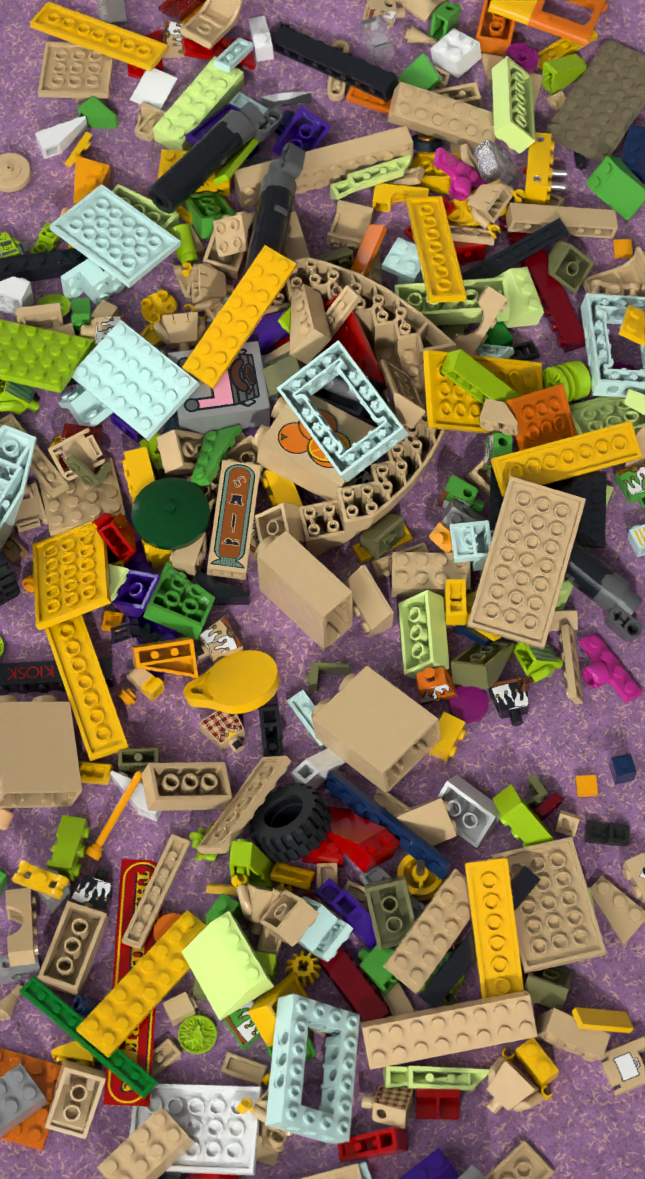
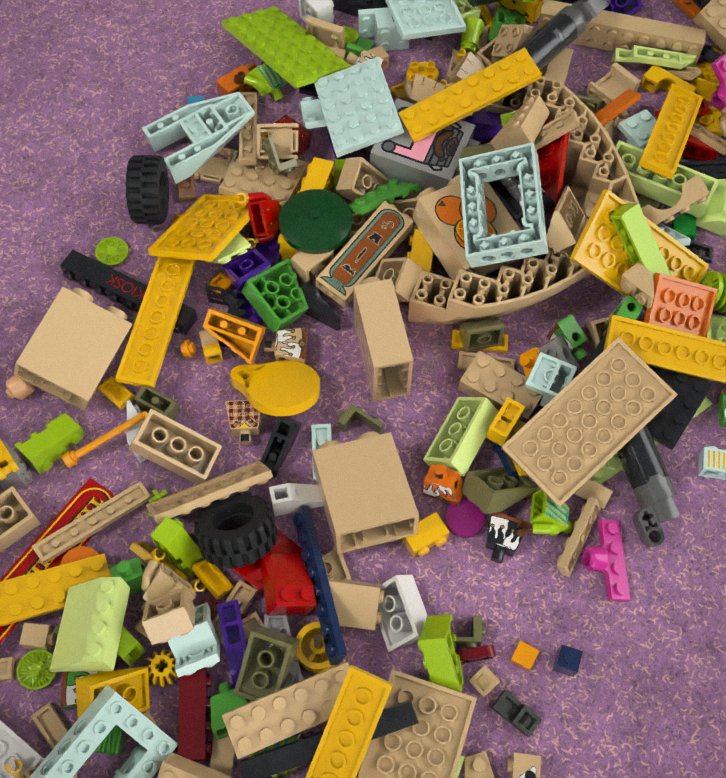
camera: 30 degrees right, 0 degrees up
(94, 892) = (43, 494): torso -> none
(369, 602) = (432, 381): tan slope -> none

